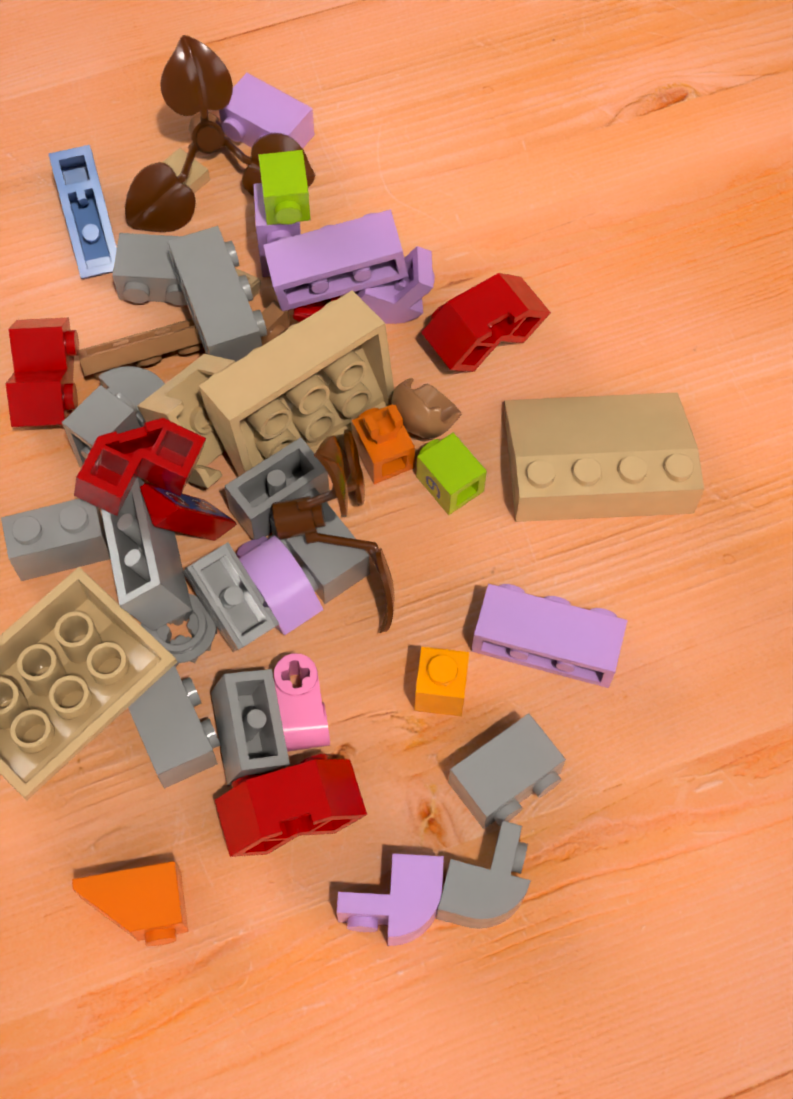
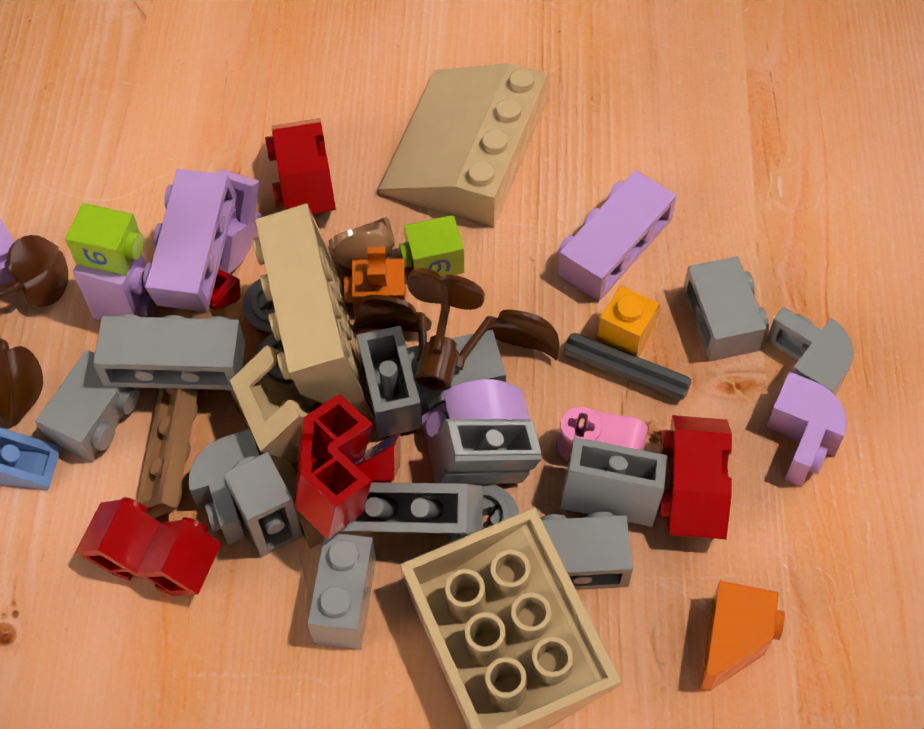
camera: 65 degrees left, 5 degrees down
(400, 702) = (627, 366): none -> dark grey axle

